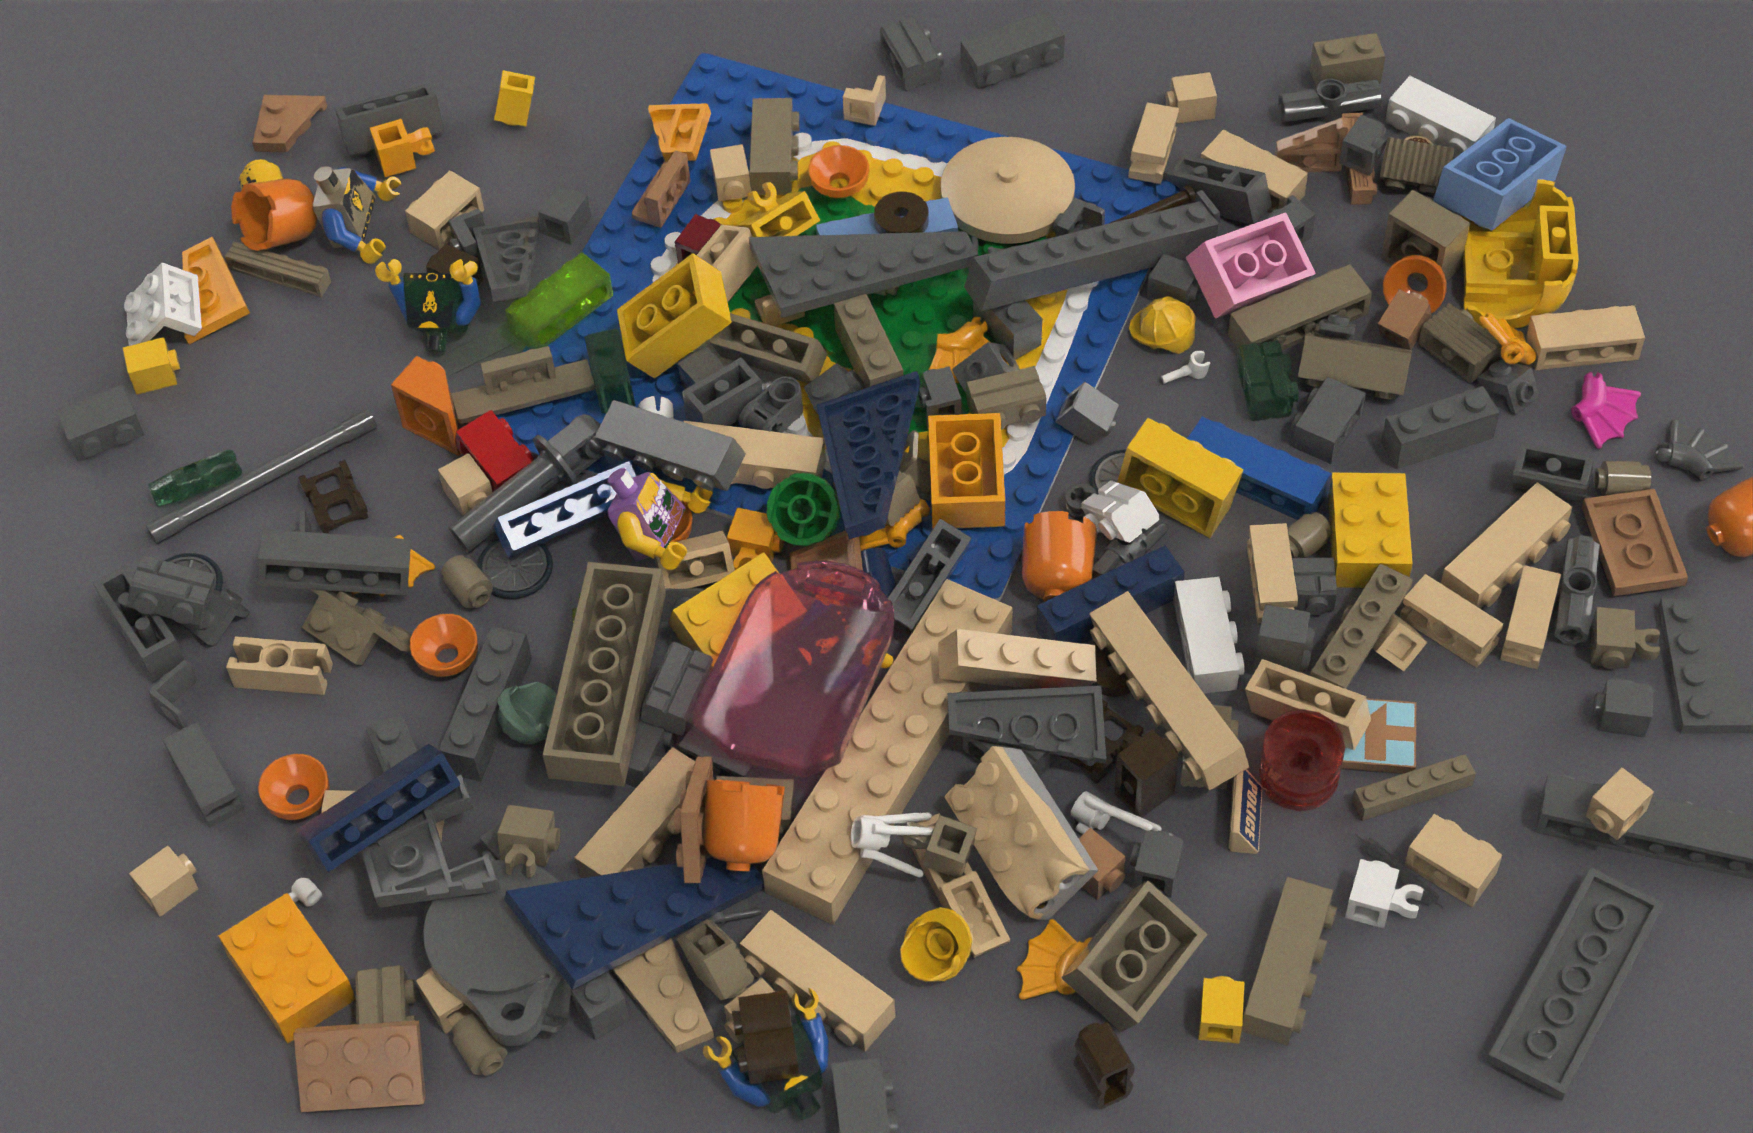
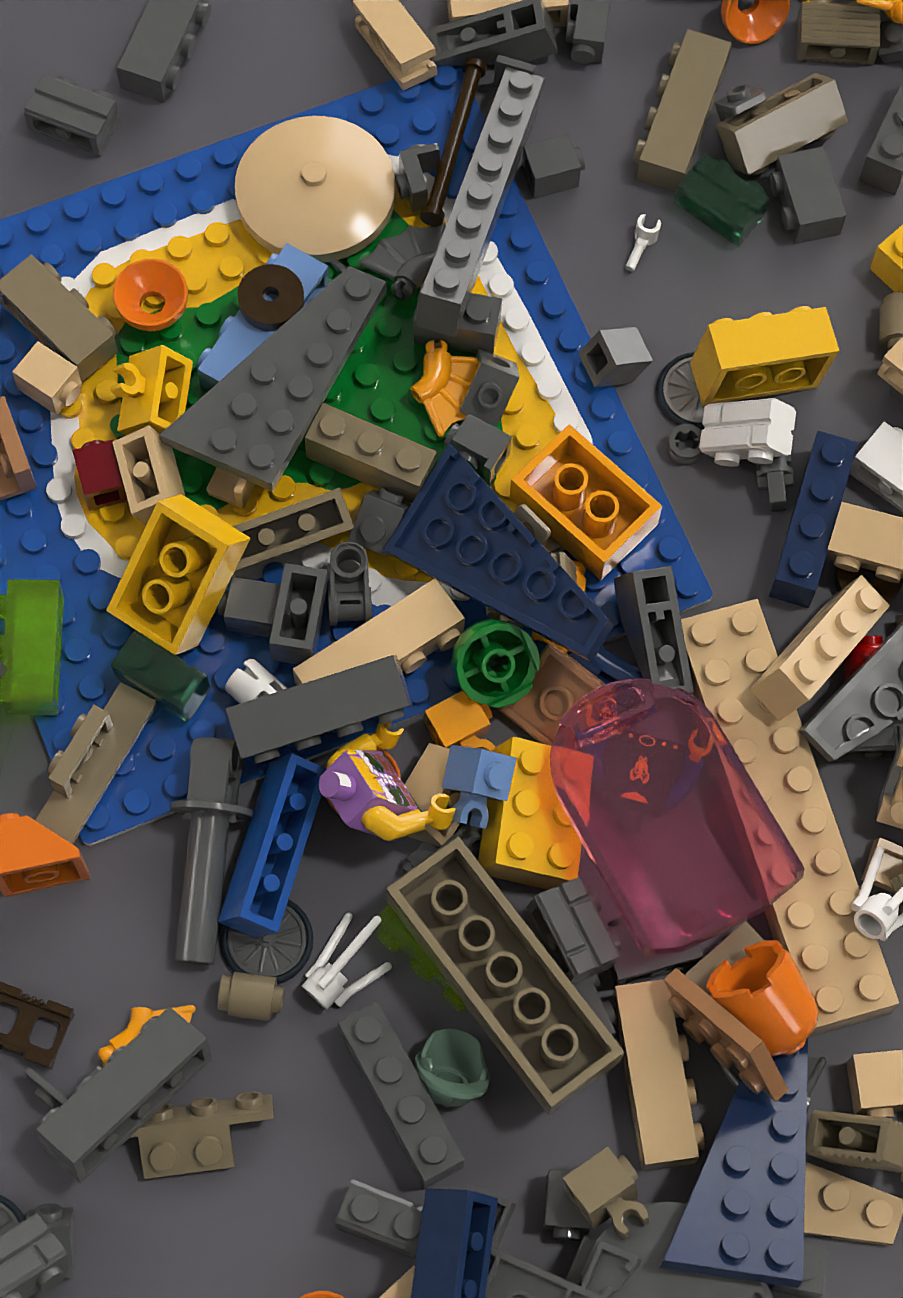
camera: 50 degrees left, 15 degrees up
(260, 659) = (151, 1228): tan piece -> none
(442, 633) = (299, 1052): orange piece -> none
(464, 483) = (144, 904): tan brick -> none
(493, 448) = (139, 849): red brick -> none
(518, 611) = (327, 982): none -> white plant
(717, 557) = (477, 776): none -> medium blue brick
(863, 104) = (91, 201): tan panel -> none
(1013, 394) = (539, 401): dark tan brick -> none
(1057, 553) = (740, 519): orange cylinder -> none
(1164, 325) = (581, 215): yellow piece -> none
(1250, 264) = (614, 98): bright pink brick -> none
(1268, 473) = (839, 282): blue brick -> none
(1405, 318) = (777, 45): medium nougat brick -> none

